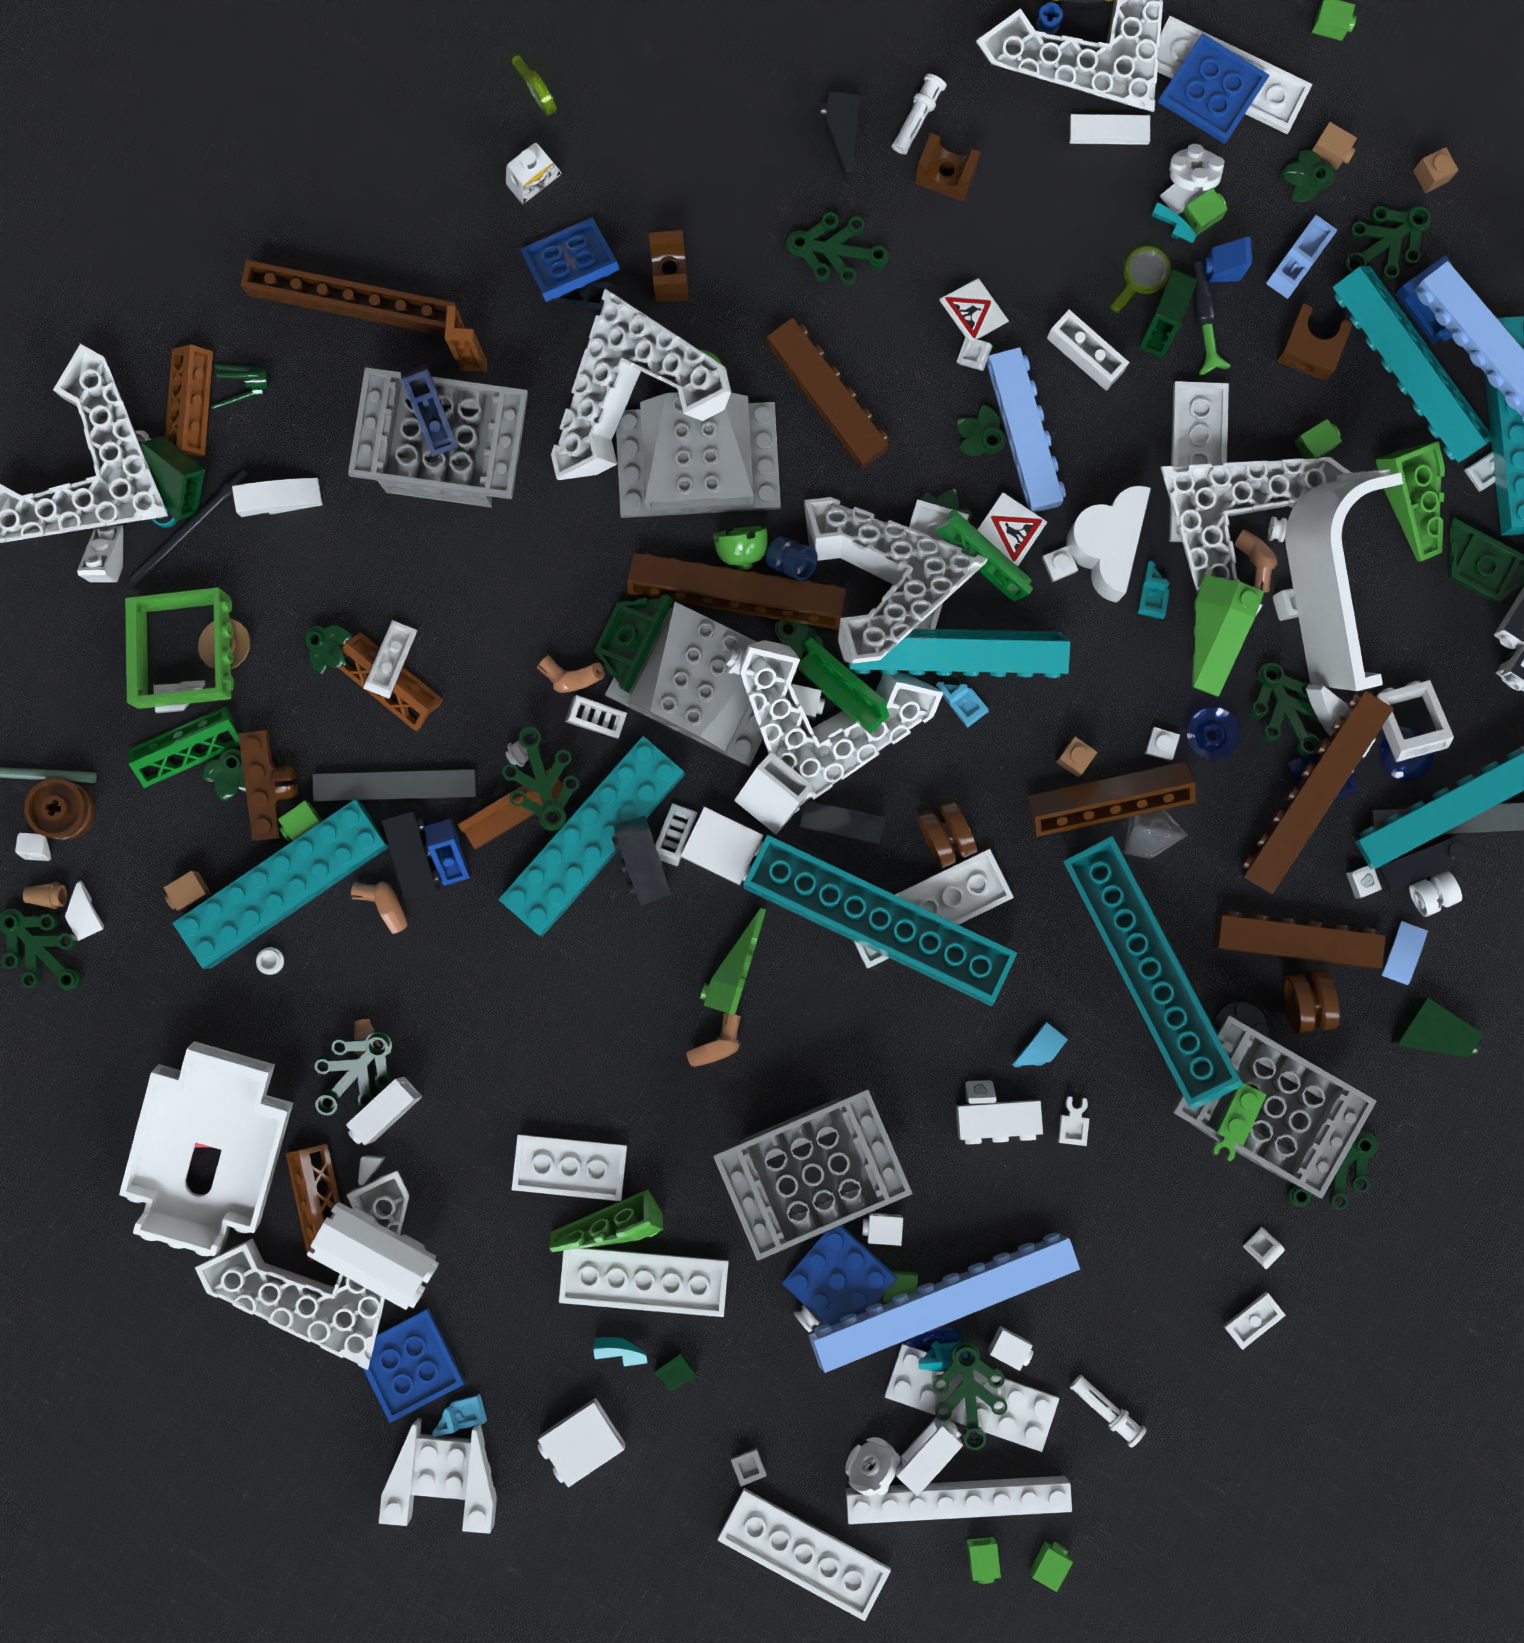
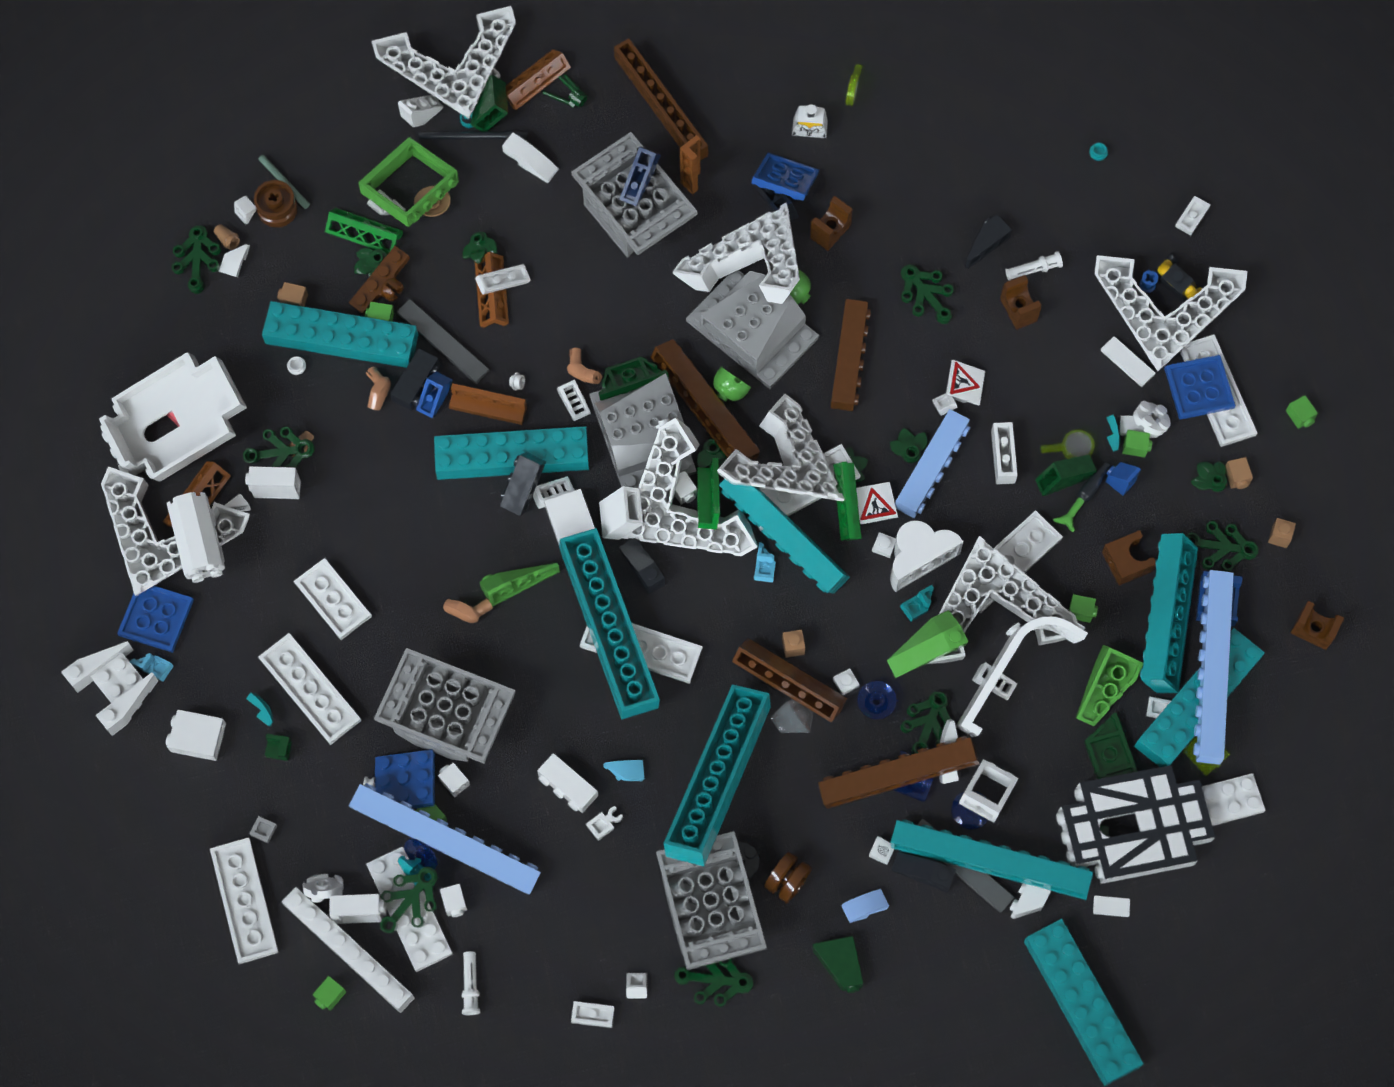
camera: 45 degrees right, 15 degrees down
(541, 784) = (513, 402): dark green plant -> none
(618, 1223) = (329, 648): bright green wedge -> none
(792, 558) = (748, 413): dark blue wheel -> none
(950, 831) = (687, 615): reddish brown wheel -> none
(980, 1092) = (573, 761): white slope -> none
(1051, 1565) = (359, 1031): bright green brick -> none
(1238, 1119) = (685, 885): bright green plate -> none
(1260, 555) = (992, 636): nougat arm -> none
(1299, 941) = (815, 846): reddish brown brick -> none
(1301, 256) = (1166, 511): light blue slope -> none
(1432, 894) = (919, 890): white wheel -> none

